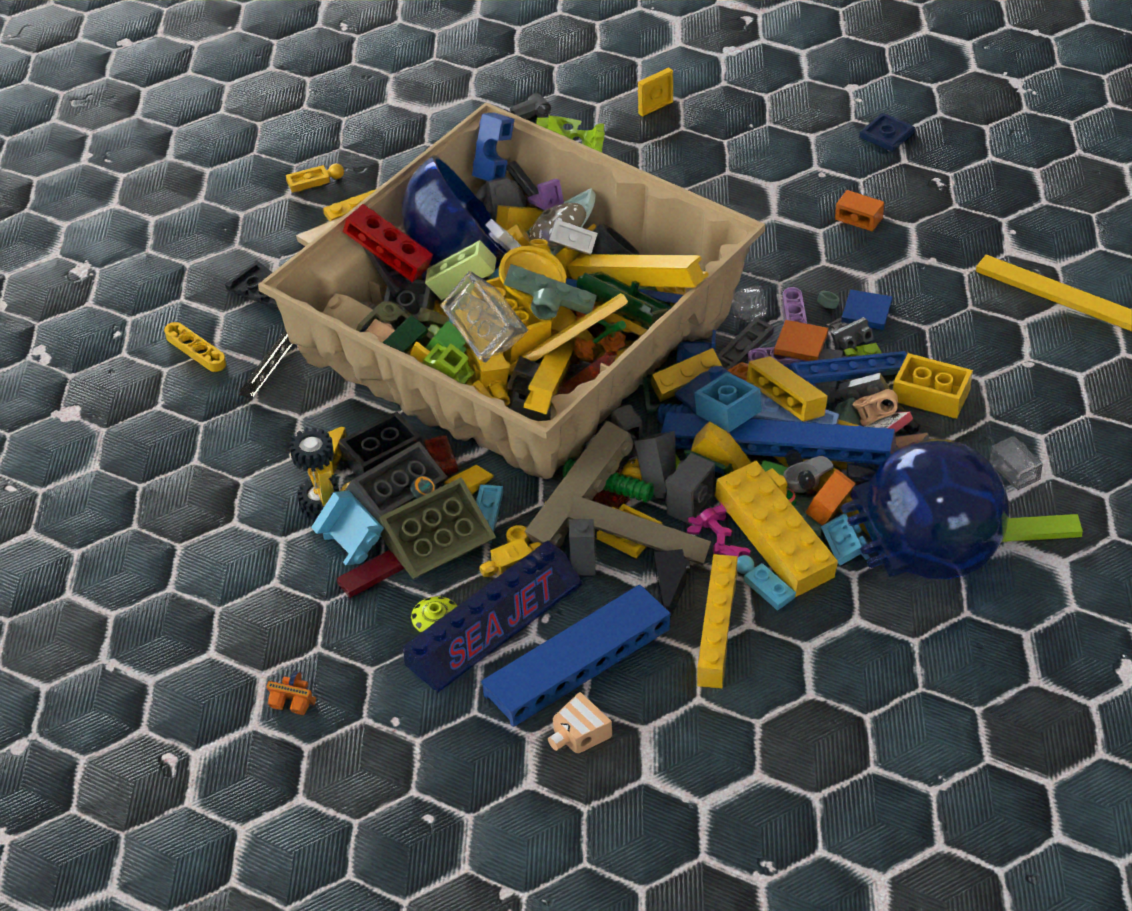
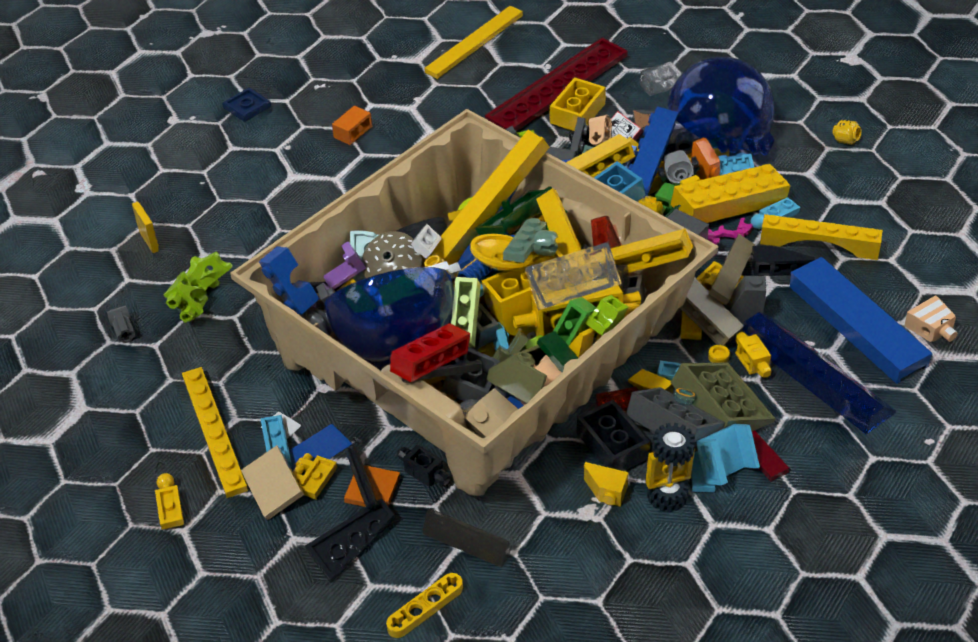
camera: 85 degrees left, 0 degrees up
(293, 691) = (912, 504): orange hips -> none
(430, 611) = (809, 412): neon yellow dish -> none
(849, 367) = (553, 138): blue tile -> none
(940, 652) = (847, 132): none -> yellow head
(990, 374) = (541, 94): none -> dark red plate

